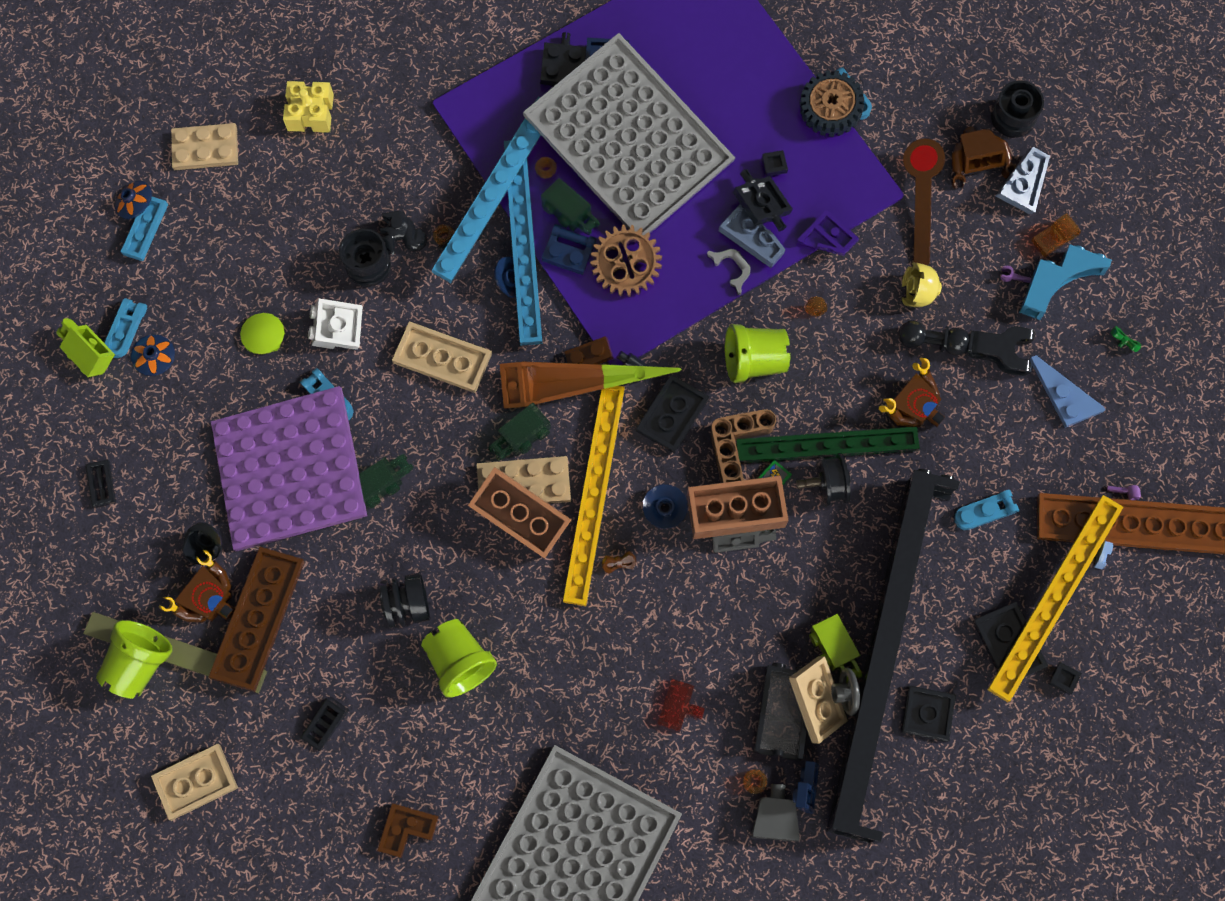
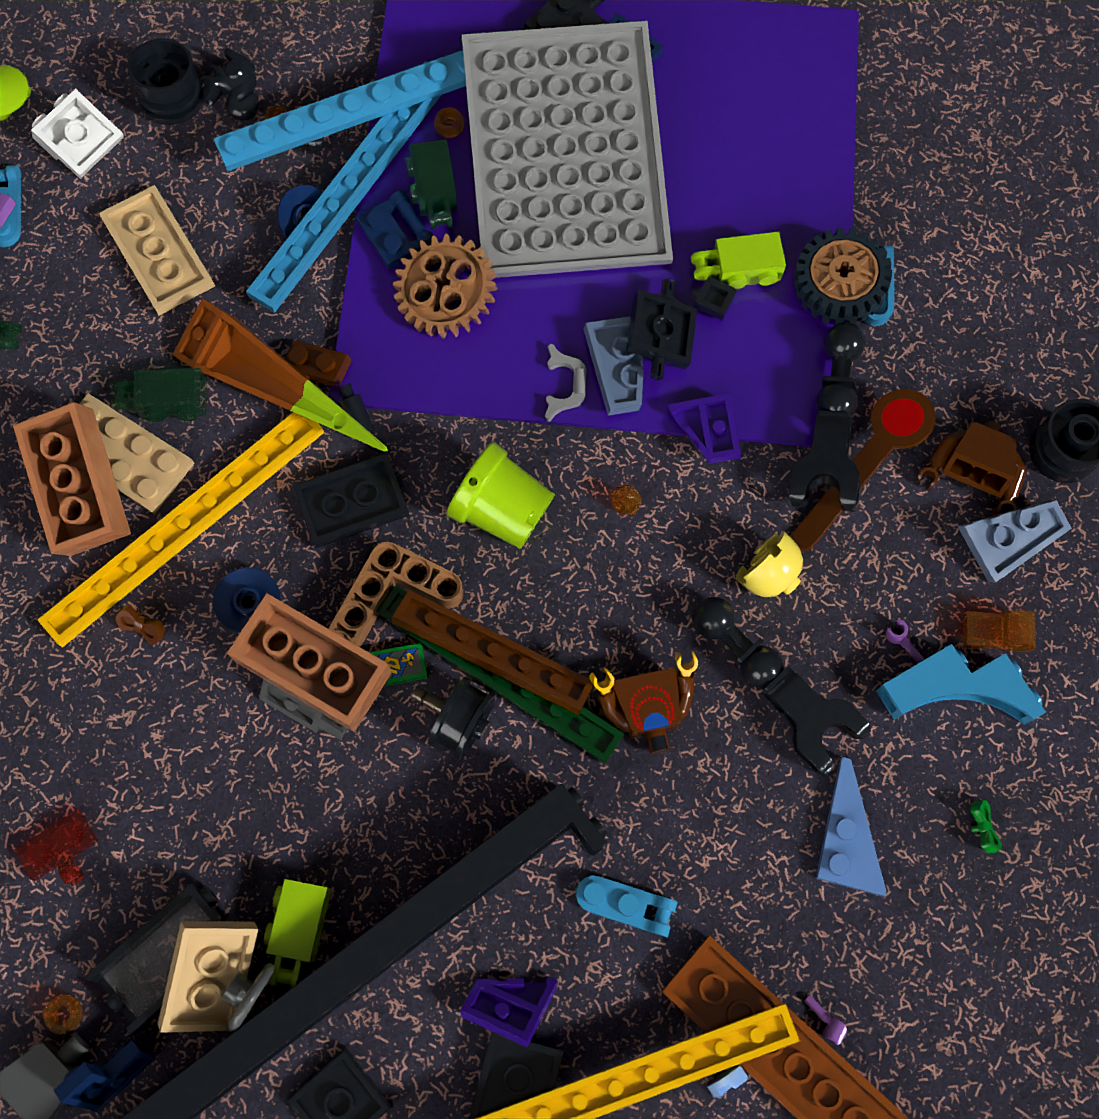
camera: 35 degrees right, 0 degrees up
(773, 132) = (742, 260): none -> lime brick
(819, 434) = (493, 652): none -> reddish brown plate
(886, 177) = (835, 406): none -> black piece
(972, 602) = (509, 1006): none -> dark purple wing

